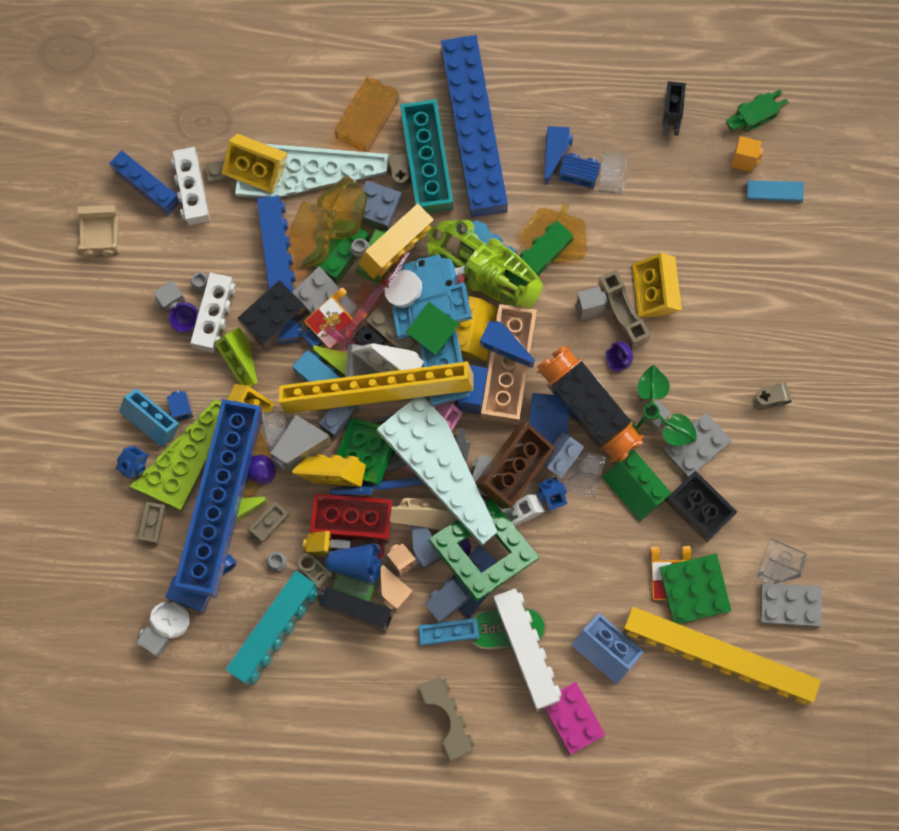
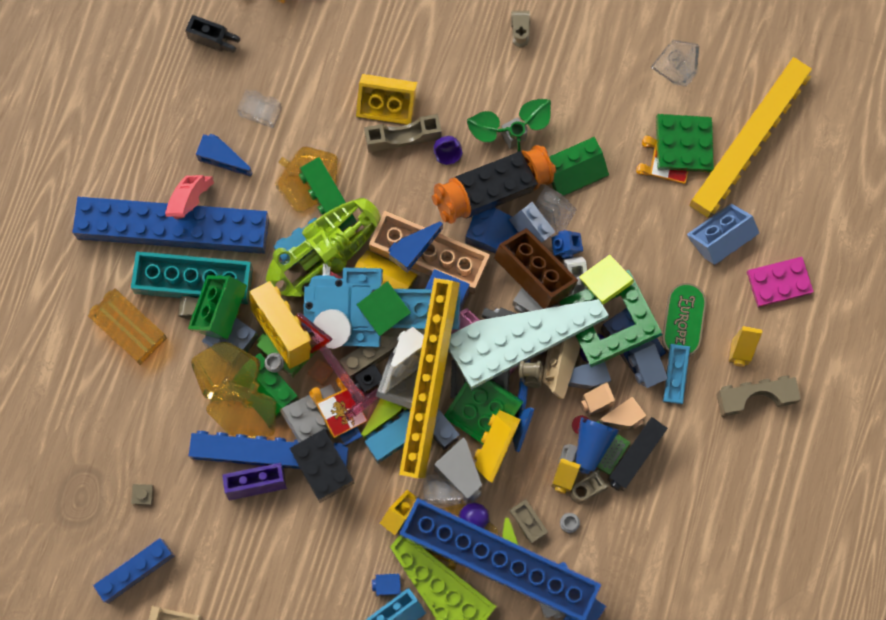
camera: 80 degrees left, 0 degrees up
(168, 296) = (267, 571): light grey brick -> none
(183, 317) = (294, 560): dark purple hair -> none
(199, 212) = (121, 517): white brick -> none
(199, 281) = (258, 536): light grey plate -> none
(215, 284) = (321, 548): white brick -> none
(238, 356) = (349, 513): lime slope -> none
(247, 263) = (254, 481): none -> dark purple brick
(254, 163) = (149, 449): yellow slope -> none
(272, 629) = (641, 539): teal brick -> none
(317, 169) = (164, 418): light aqua wing -> none
(352, 517) = (546, 438): red brick -> none
(399, 183) = (217, 306): none -> green slope
(406, 483) = (531, 374): none -> dark tan piece
(489, 690) = (744, 346): none -> yellow slope
(501, 125) = (187, 195): none -> coral slope
(521, 535) = (606, 279): none -> neon yellow tile
(526, 649) = (711, 304): white brick -> none
(579, 170) = (249, 137): blue brick -> none
(590, 303) = (389, 161): light grey brick -> none
(695, 455) = (561, 111): light grey plate -> none
(701, 506) = (611, 114): black brick -> none
(791, 605) = (716, 66): light grey plate -> none

